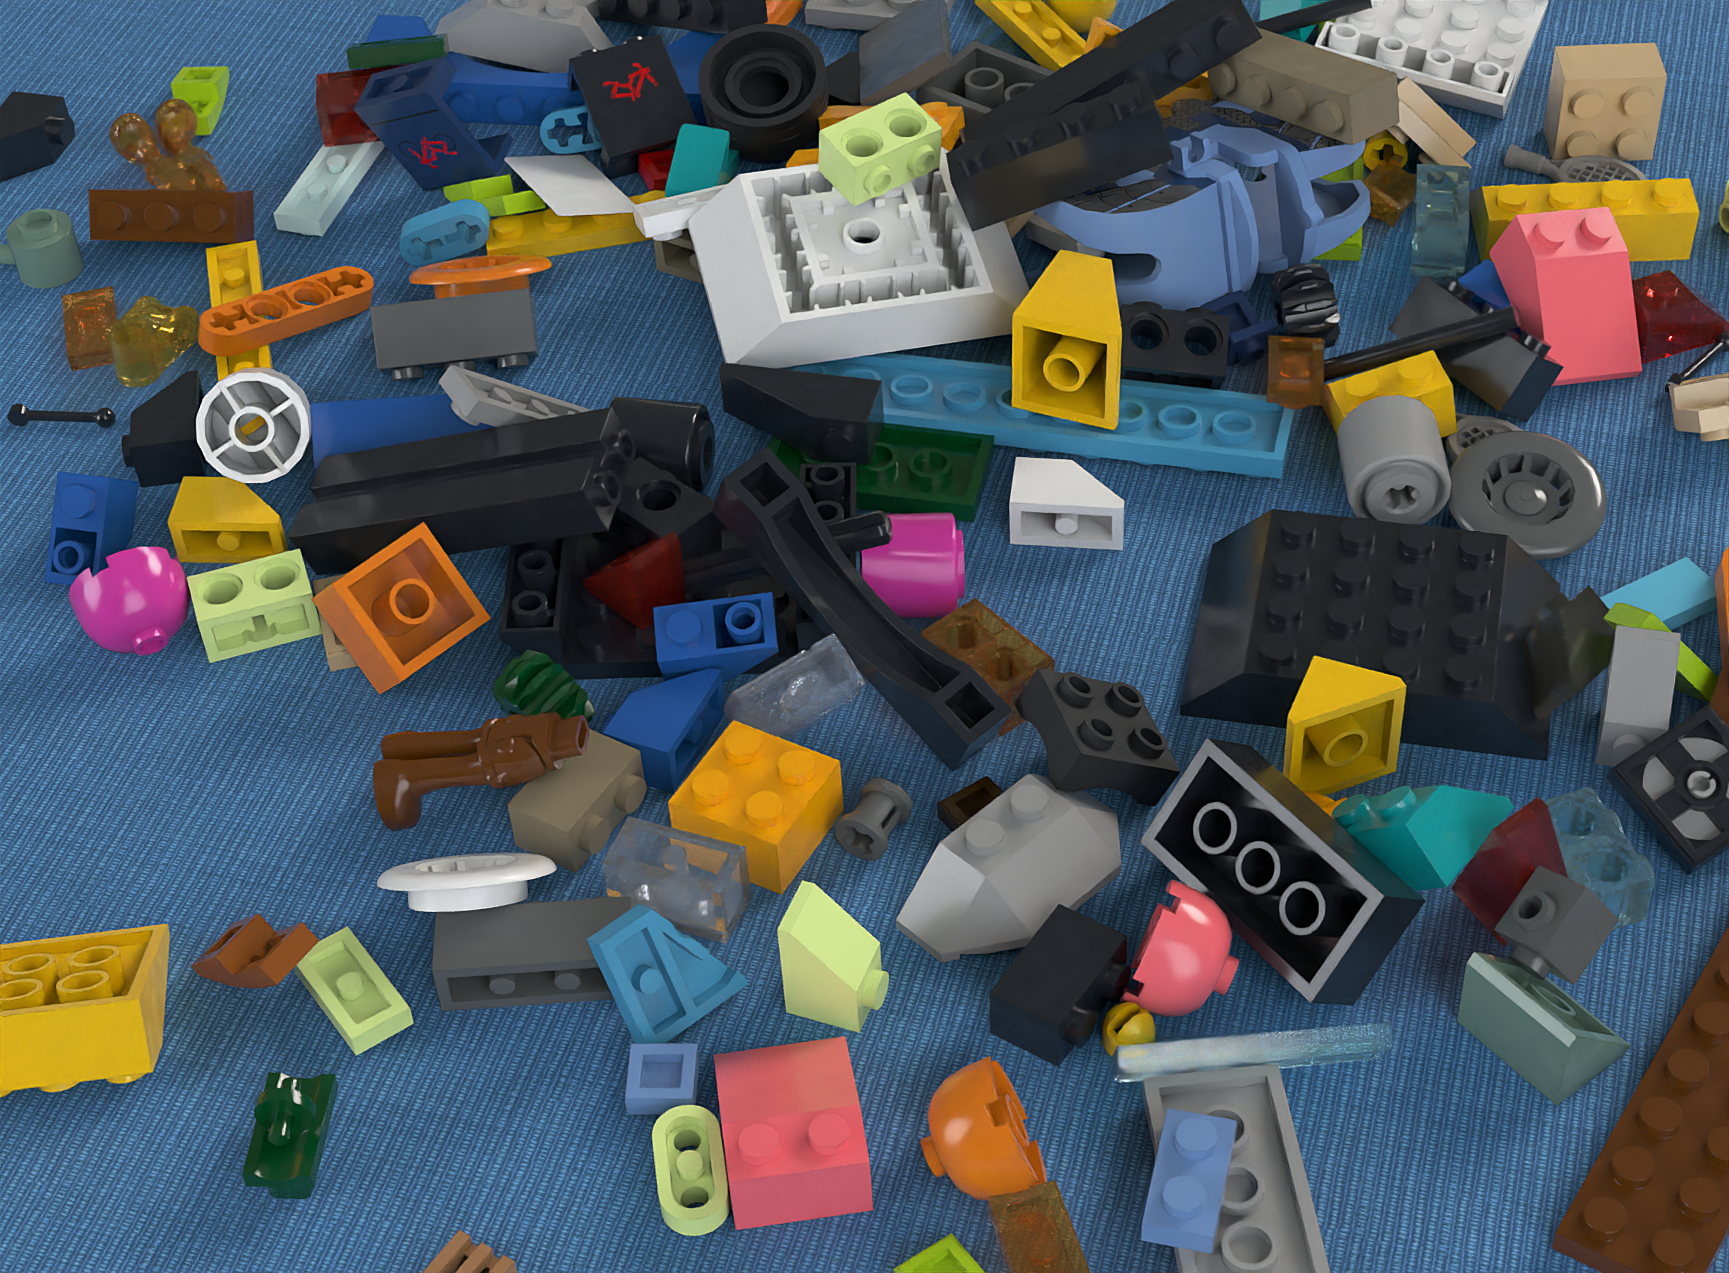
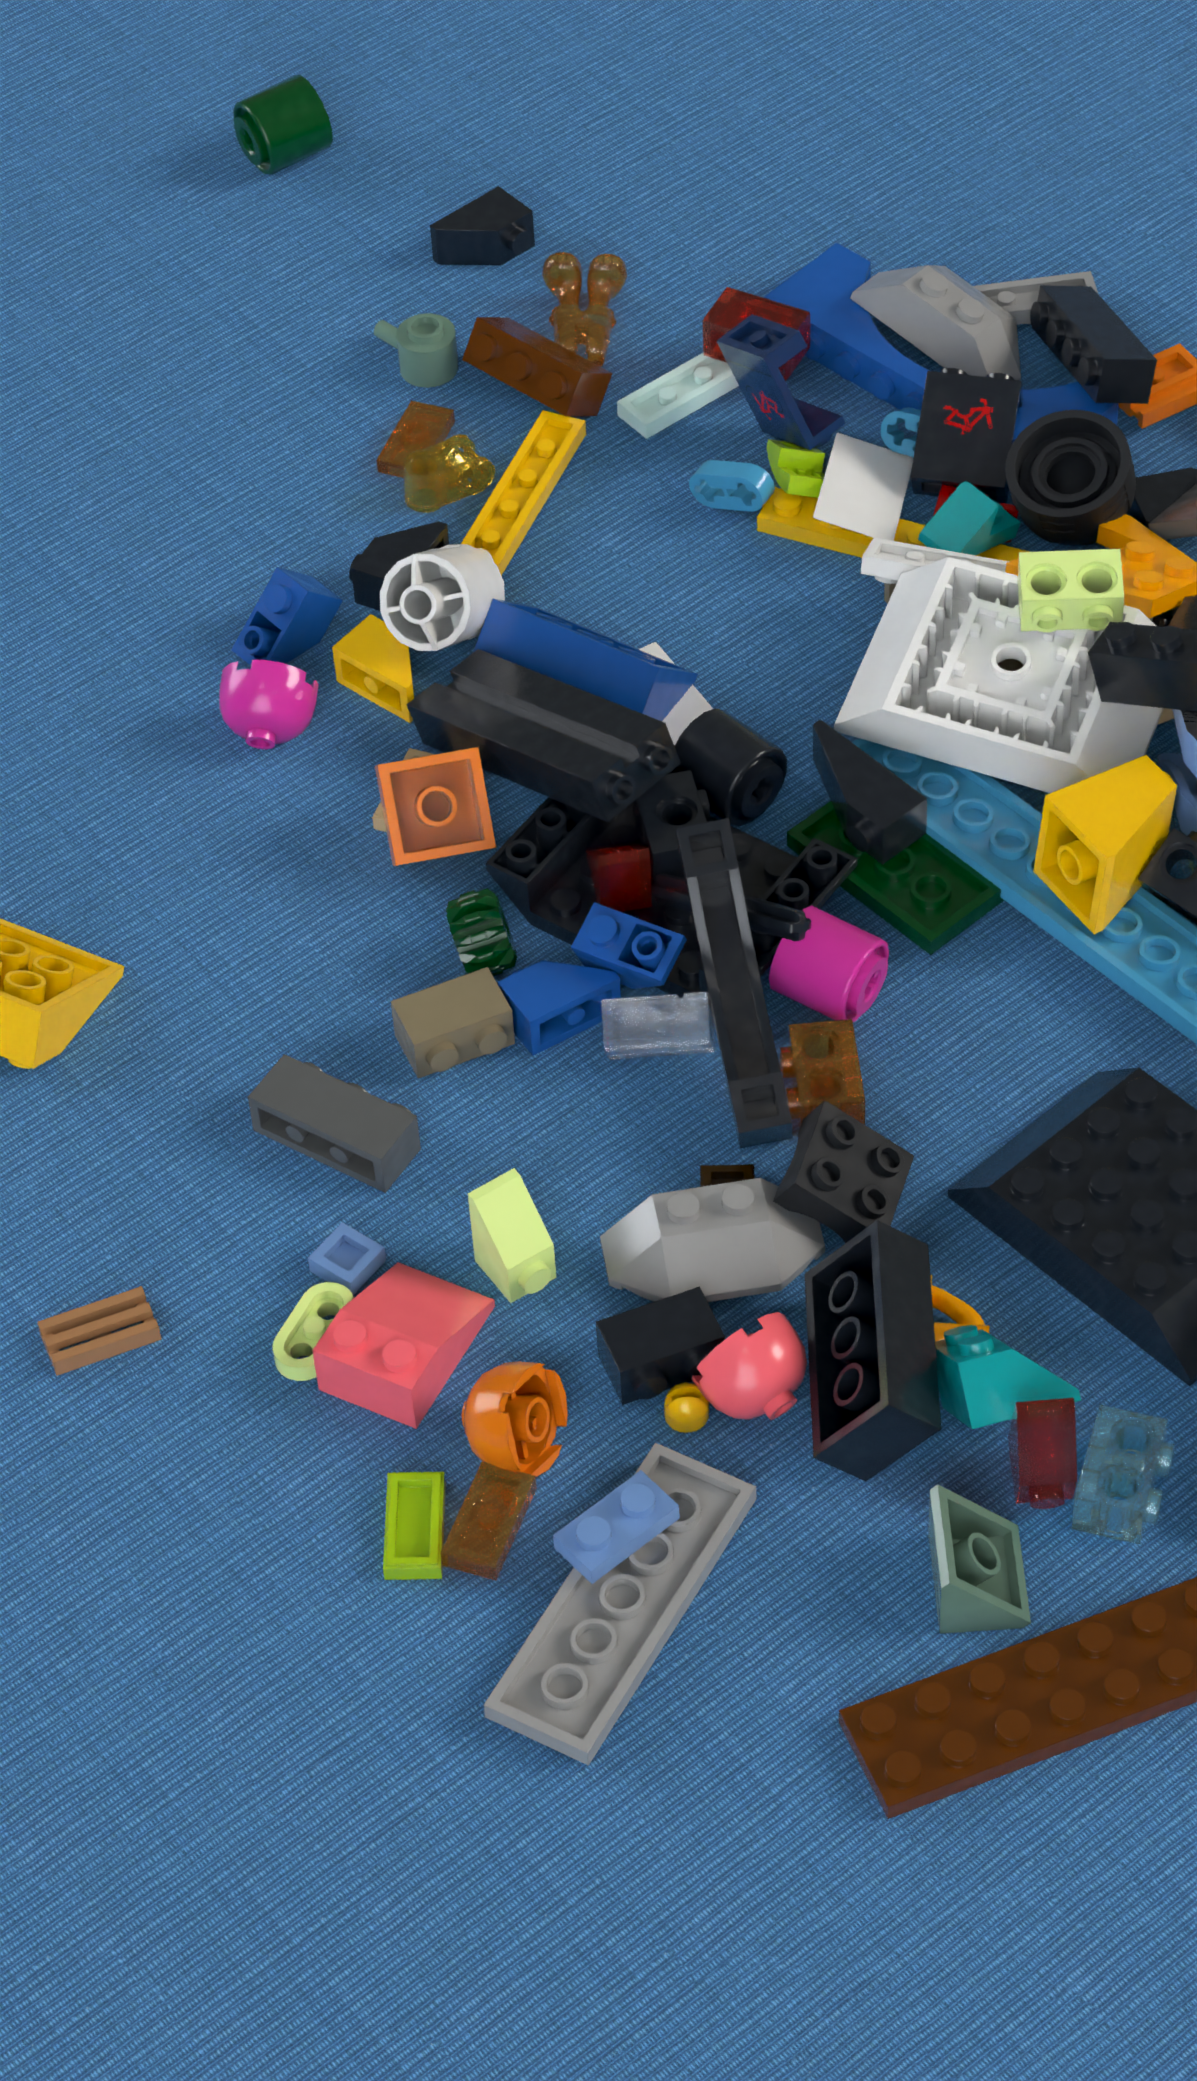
camera: 35 degrees right, 5 degrees up
(20, 415) = (312, 495): black hinge -> none
(204, 91) = (652, 253): lime slope -> none
(236, 329) = (556, 493): orange beam -> none
(254, 605) = (346, 745): yellowish green brick -> none
(254, 954) = (155, 1020): dark orange slope -> none
(290, 1134) = (84, 1158): dark green hips -> none
(353, 991) = (199, 1082): yellowish green plate -> none
(397, 51) = (809, 294): dark green plate -> none
(455, 333) = (669, 586): dark grey slope -> none
(466, 880) = (323, 1042): white wheel -> none
(480, 274) = (724, 540): orange wheel -> none
(496, 755) = (412, 962): reddish brown piece -> none
(498, 403) = (628, 683): light grey plate -> none
(660, 975) = (395, 1184): dark azure wing -> none
(681, 876) = (463, 1121): clear brick -> none
(761, 797) = (567, 1097): light orange brick -> none
(874, 819) = (643, 1152): dark grey bush -> none
(1063, 507) = (997, 975): white slope -> none
(1286, 1048) = (747, 1469): clear light blue tile -> none
(1343, 727) = (1017, 1270): yellow slope -> none
(1555, 926) = (1028, 1502): dark grey brick -> none

